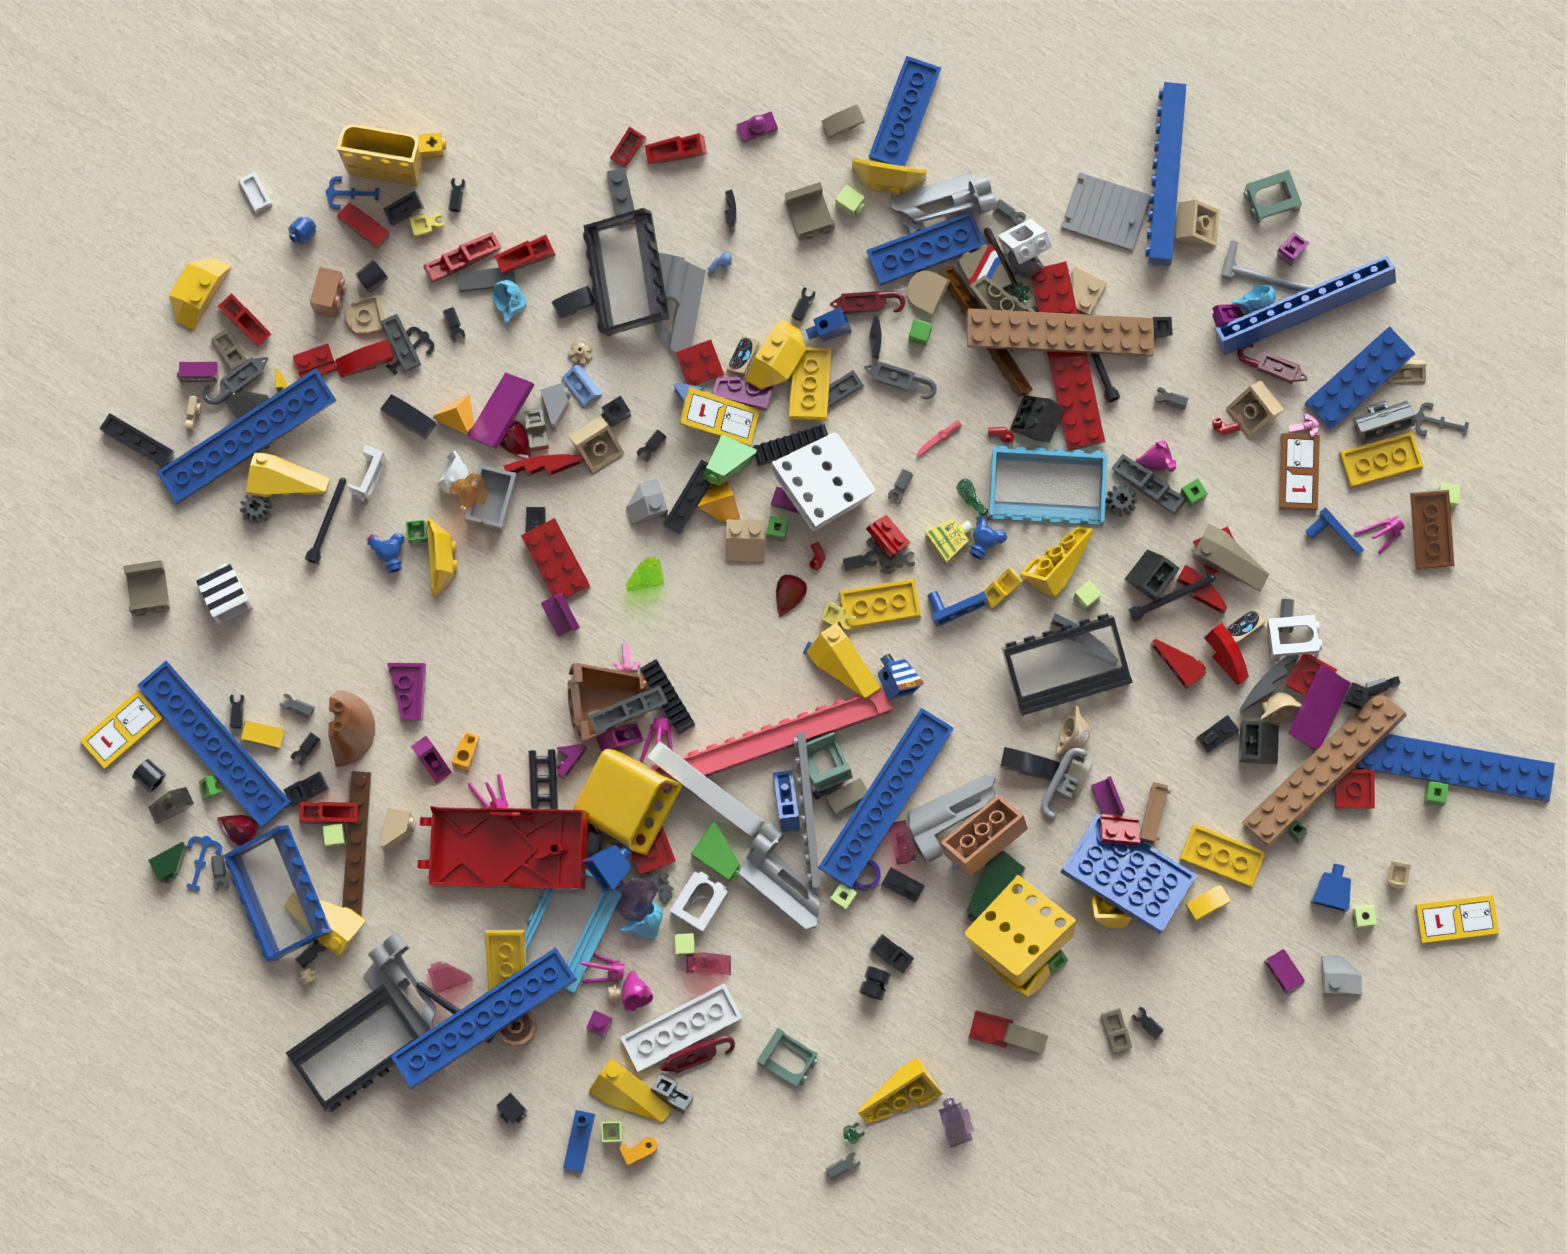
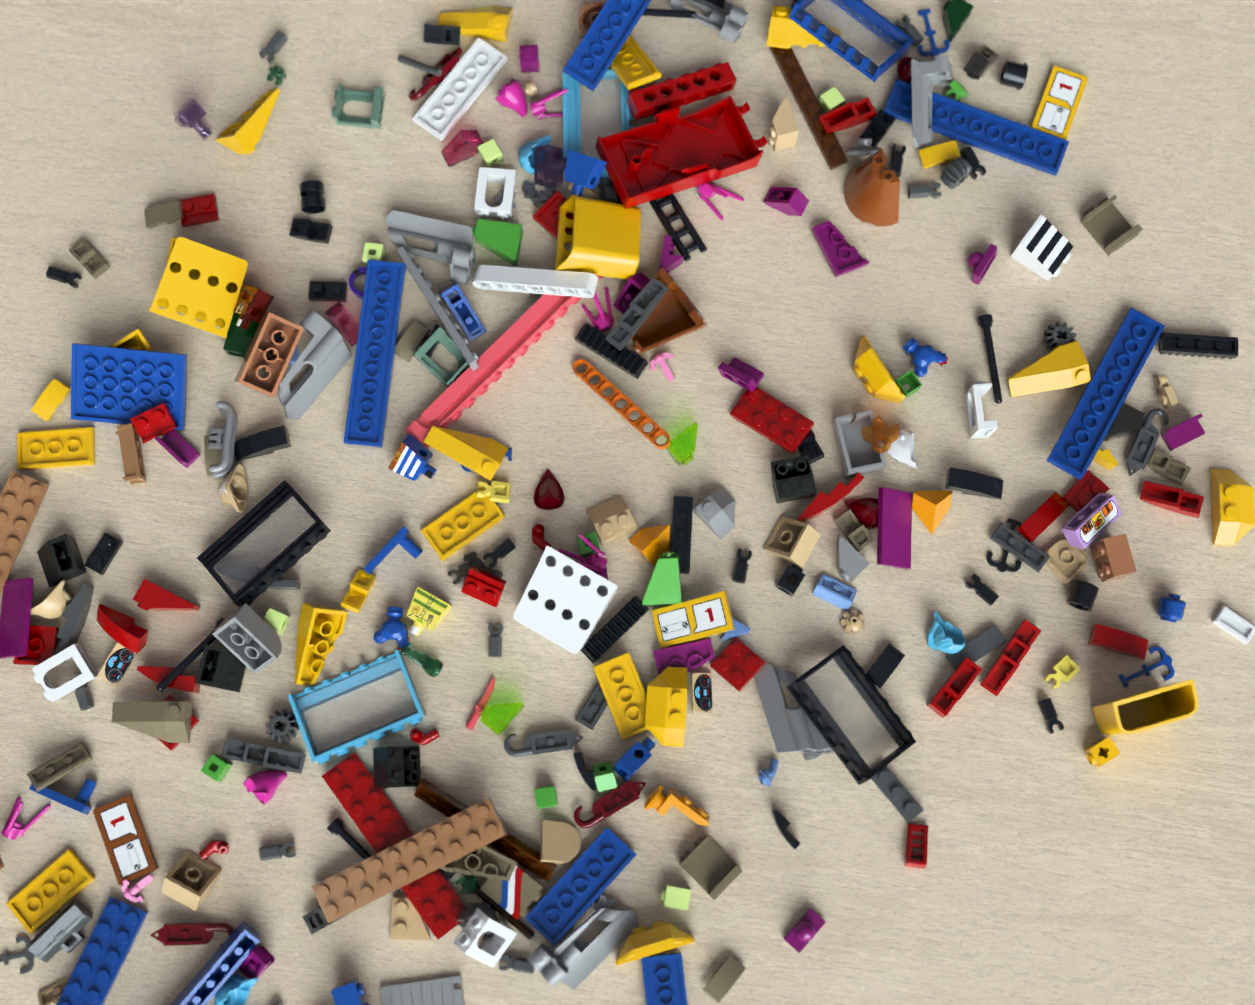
camera: 155 degrees right, 0 degrees up
(239, 809) = (923, 77): none -> light grey panel
(260, 704) = (956, 172): none -> dark grey gear
(286, 613) = (981, 262): none -> magenta tile
(327, 332) = (1091, 520): none -> lavender brick
(331, 771) = (863, 147): none -> light grey piece
(403, 208) = (1091, 676): black hinge -> none
(423, 906) = (641, 108): none -> red brick
(447, 976) = (675, 37): clear pink slope -> none
(465, 751) = (760, 220): light orange leg -> none
(566, 495) = (792, 479): none -> pearl dark grey slope
(676, 149) = (870, 866): red slope -> none
(684, 648) = (625, 411): none -> orange beam
(709, 1068) = (419, 65): none -> dark grey bar
(777, 506) = (595, 561): none -> dark pink plant
(802, 305) = (670, 768): black bar -> none
(822, 279) = (683, 803): none -> light orange piece
(861, 324) = (604, 776): none -> piece
(926, 418) = (500, 716): none -> clear neon green slope
(979, 888) = (251, 305): none -> clear red torso
(1115, 584) = (249, 638): none -> light grey brick
(1330, 557) = (59, 766): none -> dark tan tile

